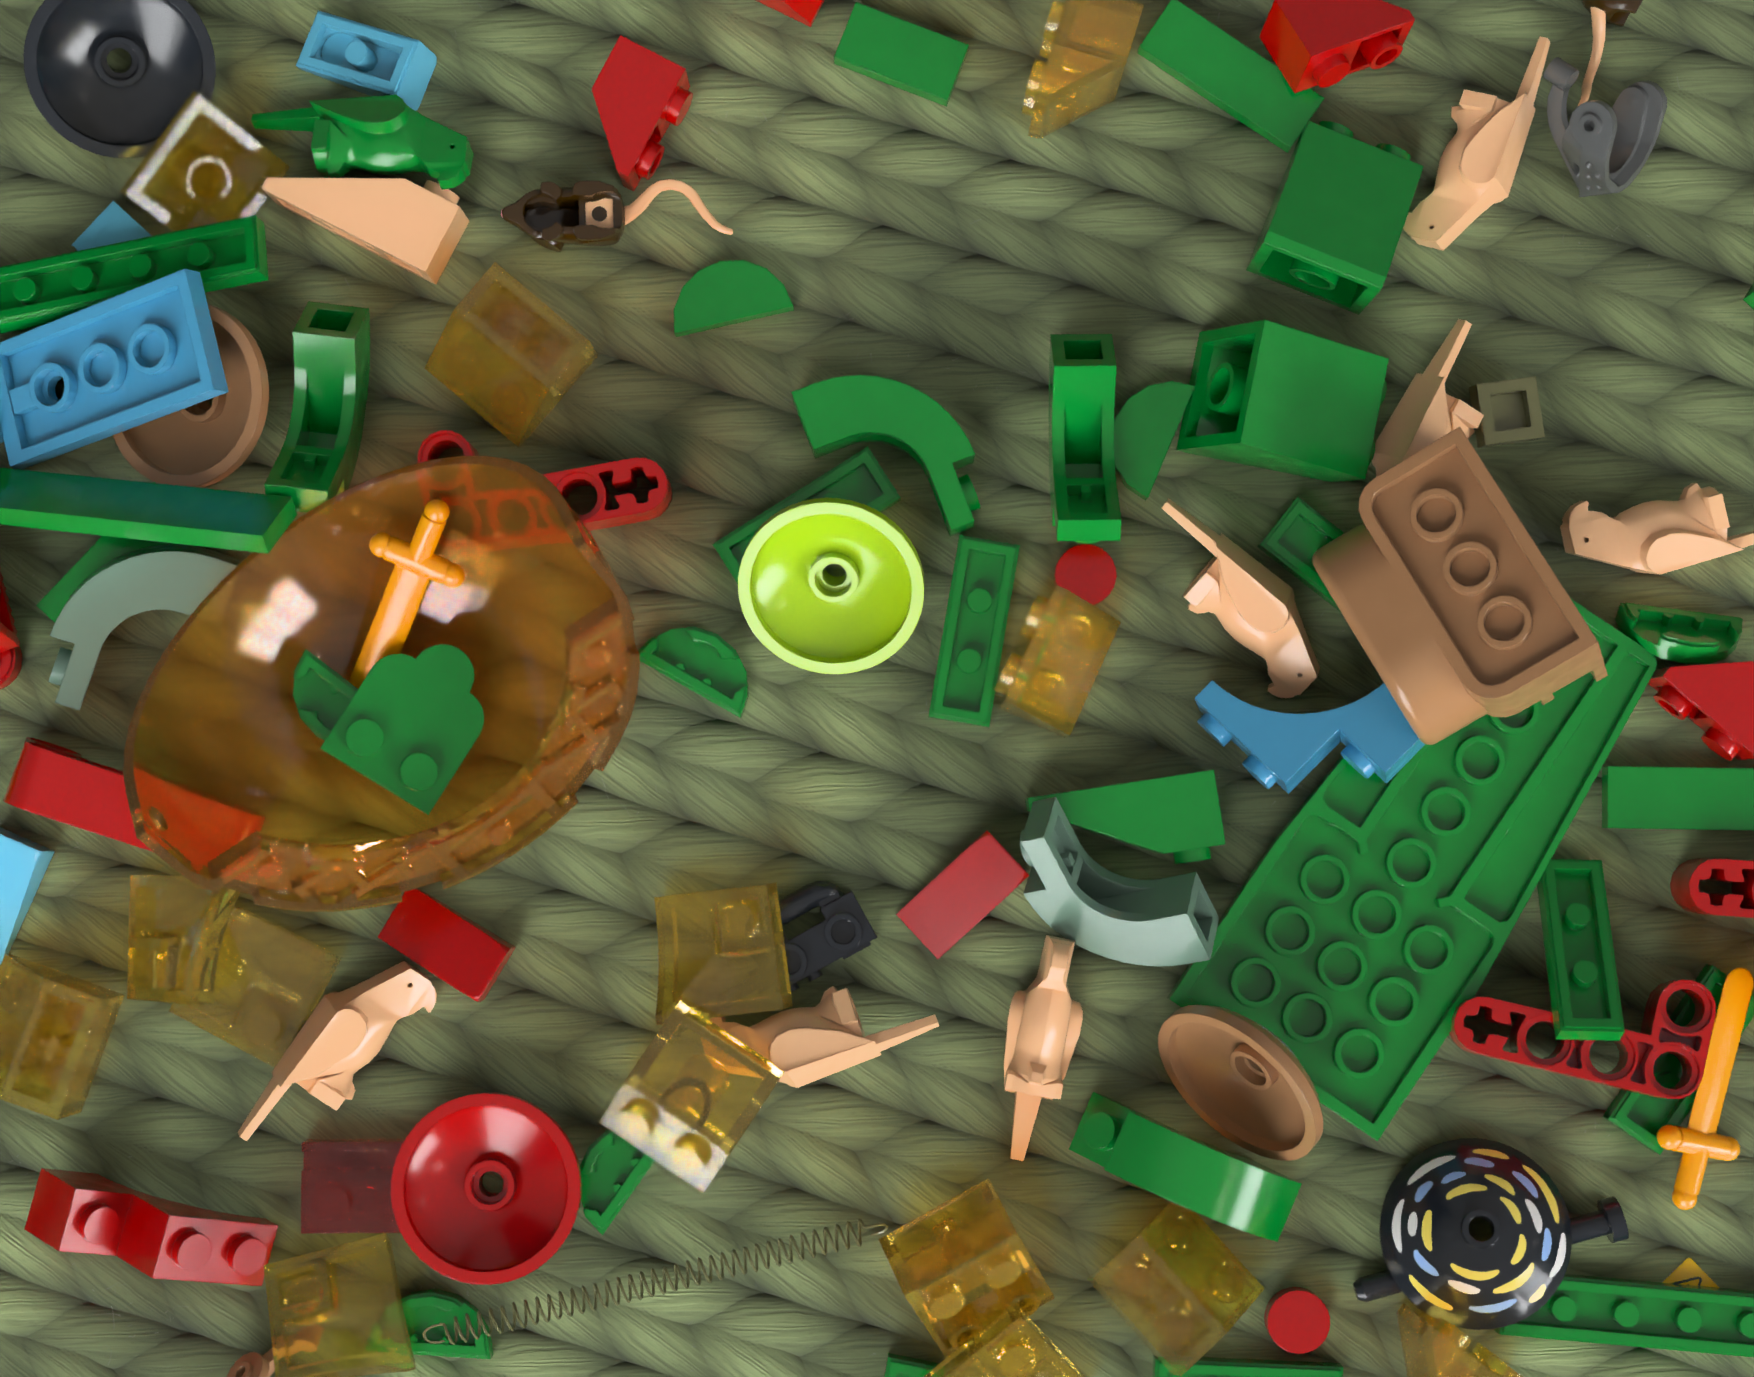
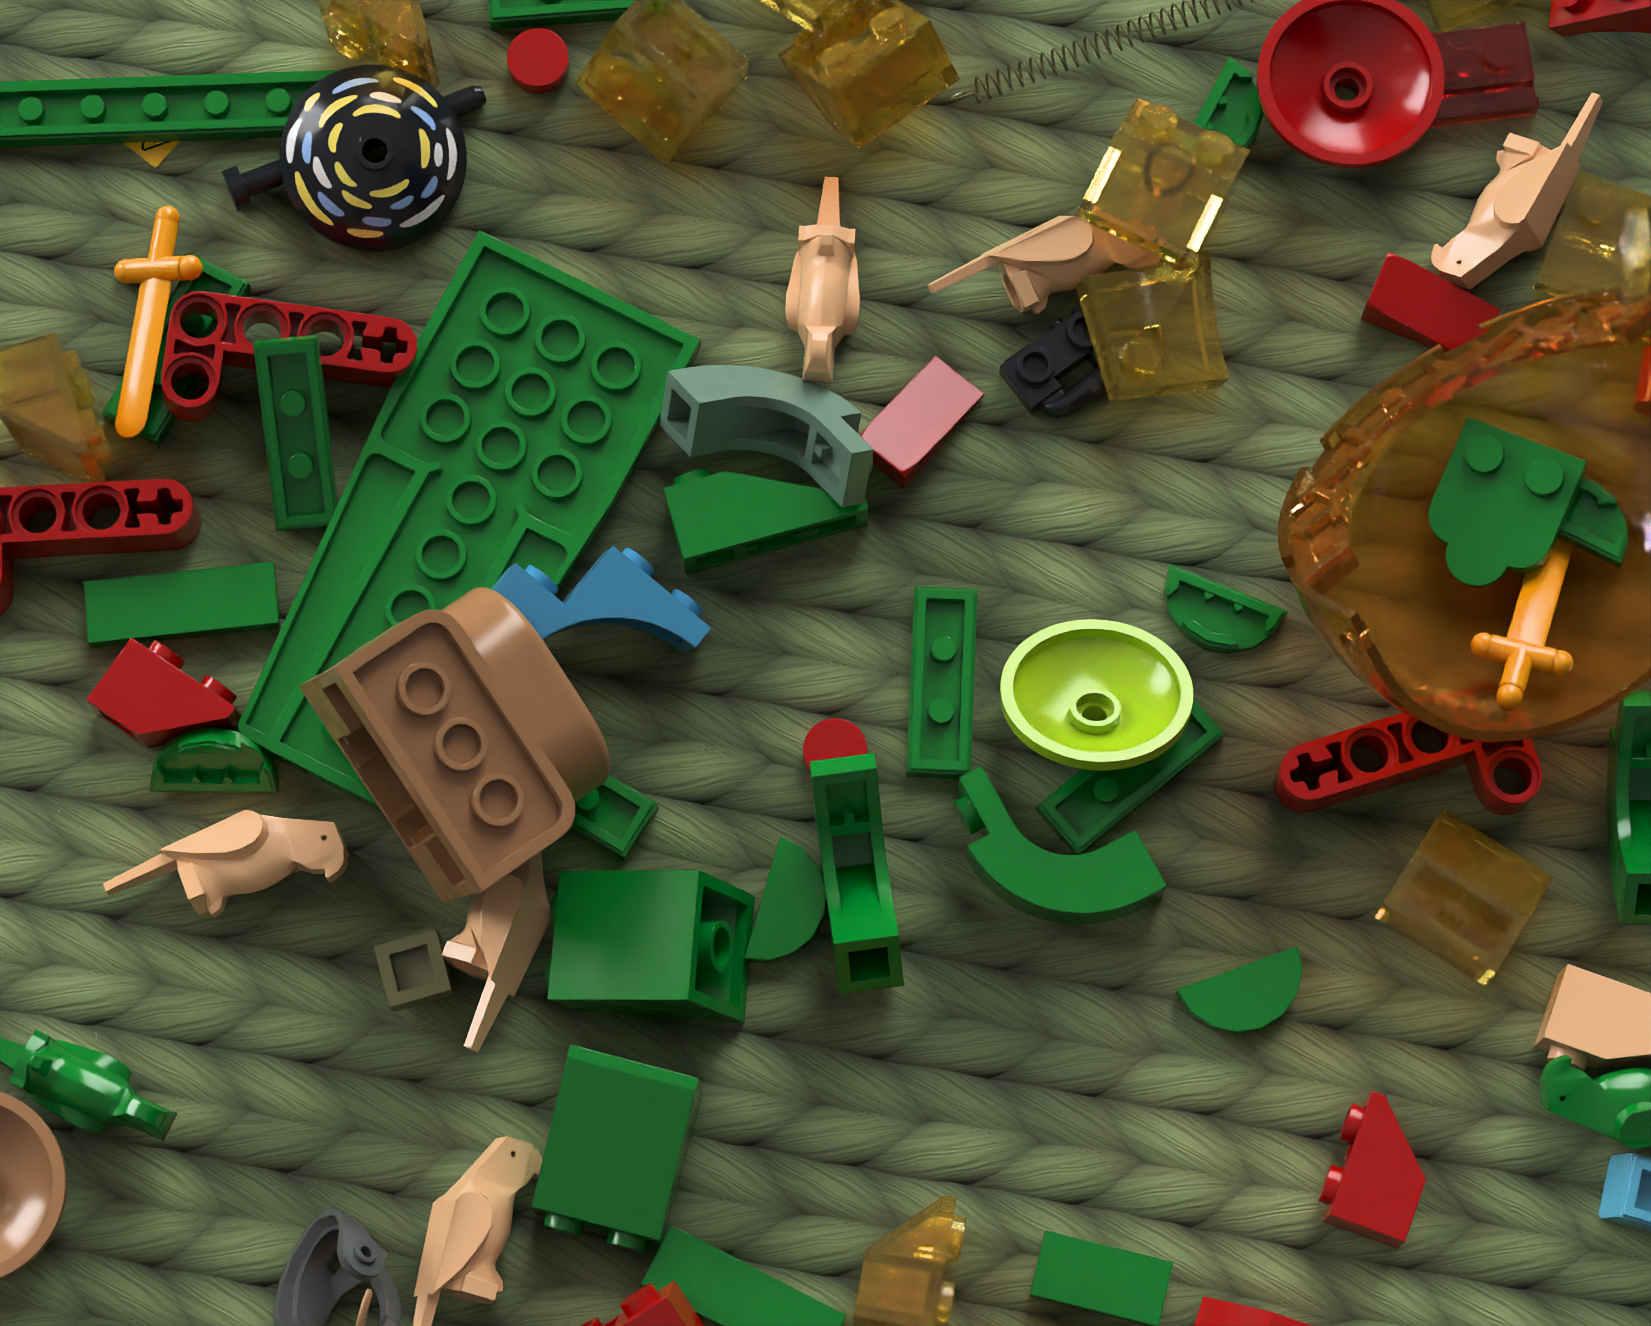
camera: 170 degrees right, 10 degrees down
(589, 212) = (1406, 1054): dark brown animal -> none
(1059, 661) = (853, 647): clear yellow slope -> none
(1185, 1168) = (666, 170): green arch -> none
(1242, 1081) = (620, 264): medium nougat dish -> none
(1251, 607) = (662, 739): light nougat animal -> none

